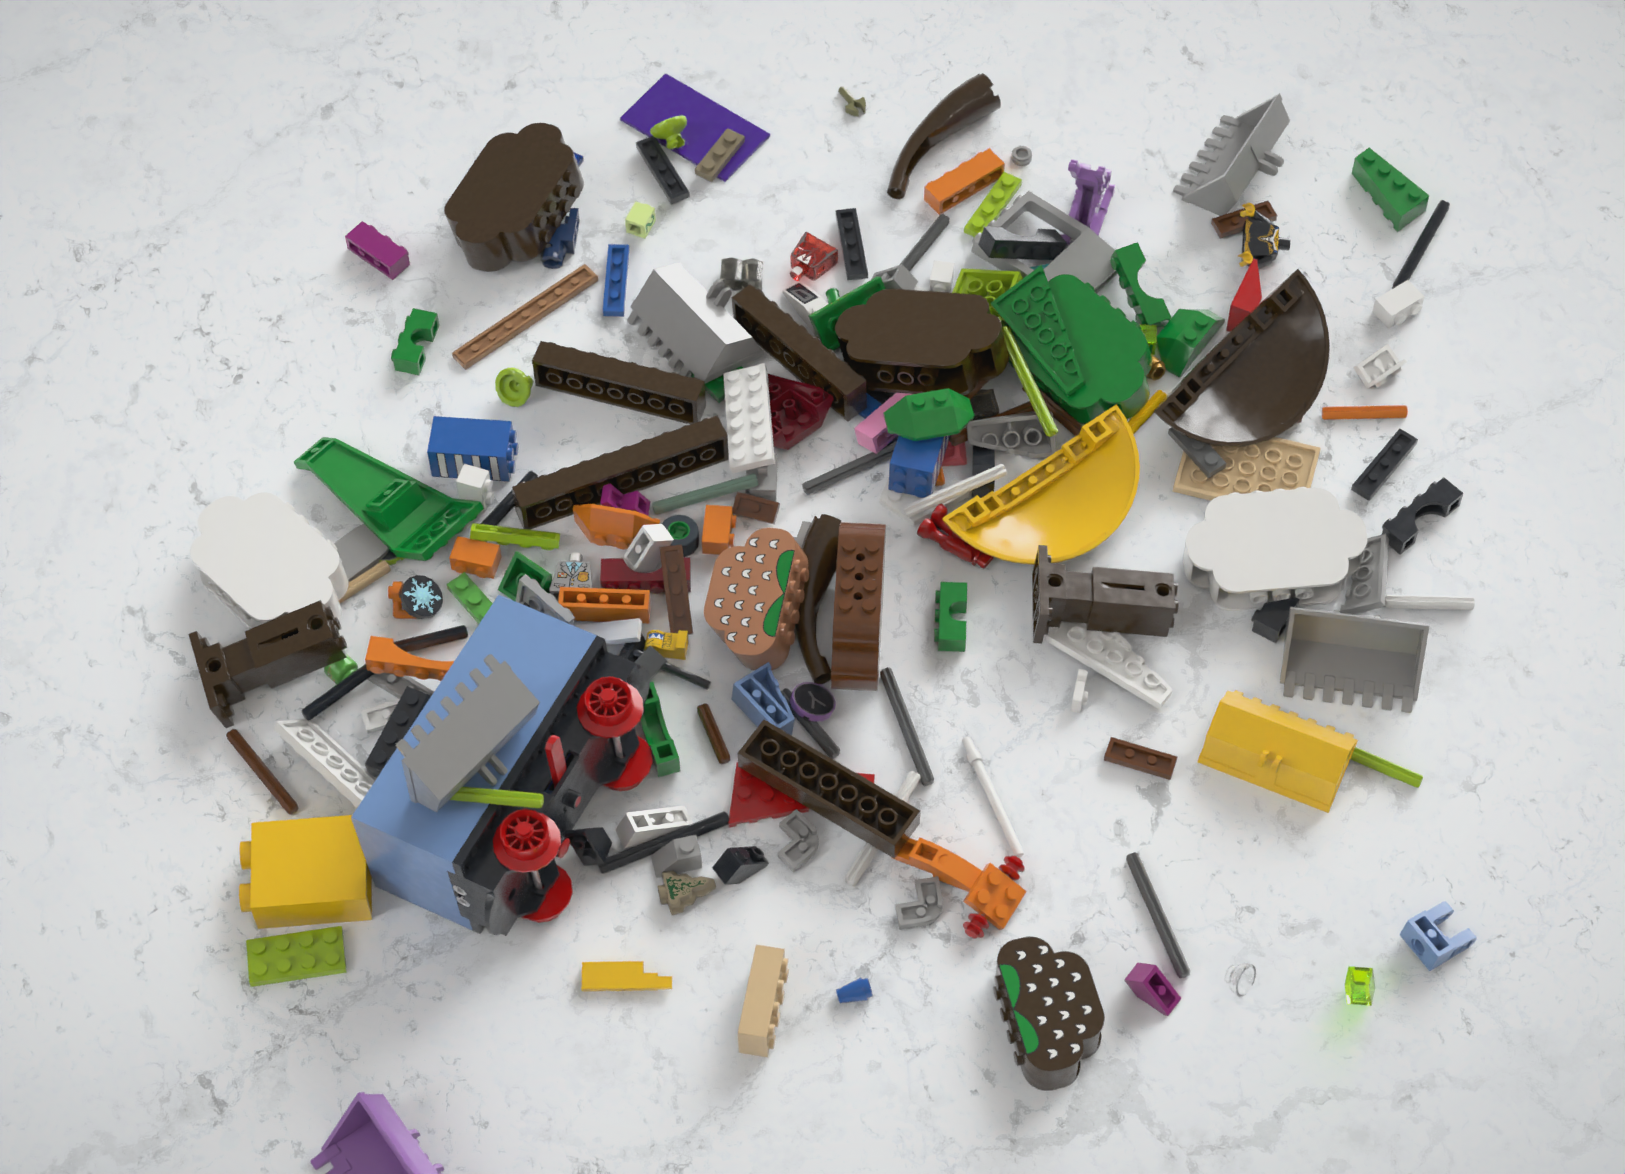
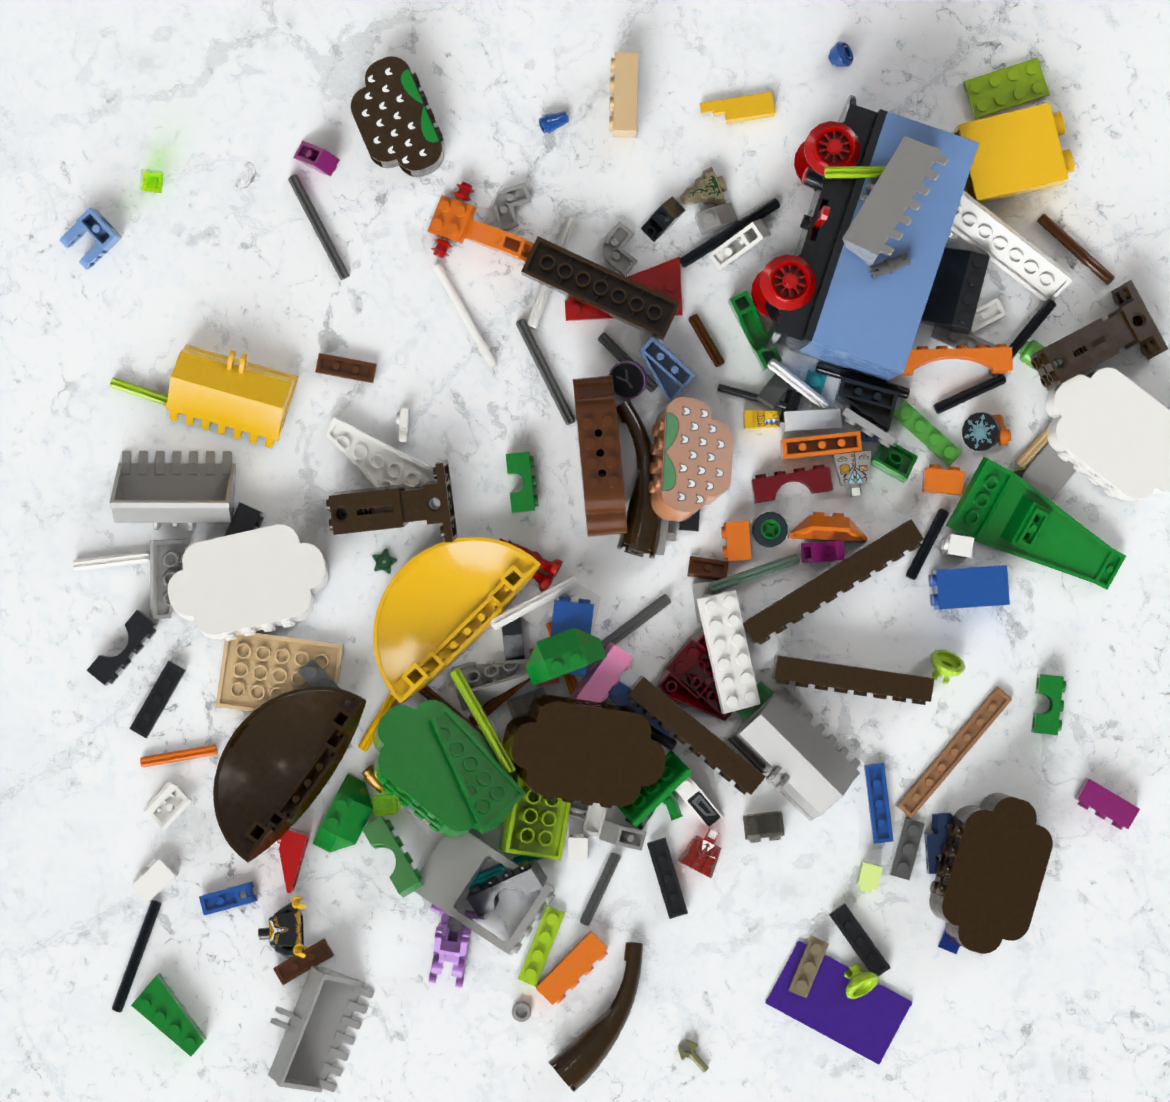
camera: 165 degrees right, 30 degrees up
(487, 1016) = (841, 55): none -> blue cone
(507, 535) = (912, 505): lime plate -> none
(590, 844) = (789, 212): black slope -> none
(595, 240) = (907, 848): none -> dark grey plate
(644, 550) = (793, 504): white brick -> none
(676, 589) = (761, 465): reddish brown plate -> none
(1117, 559) = (389, 561): none -> clear green plate
(1328, 279) = (227, 898): none -> blue plate

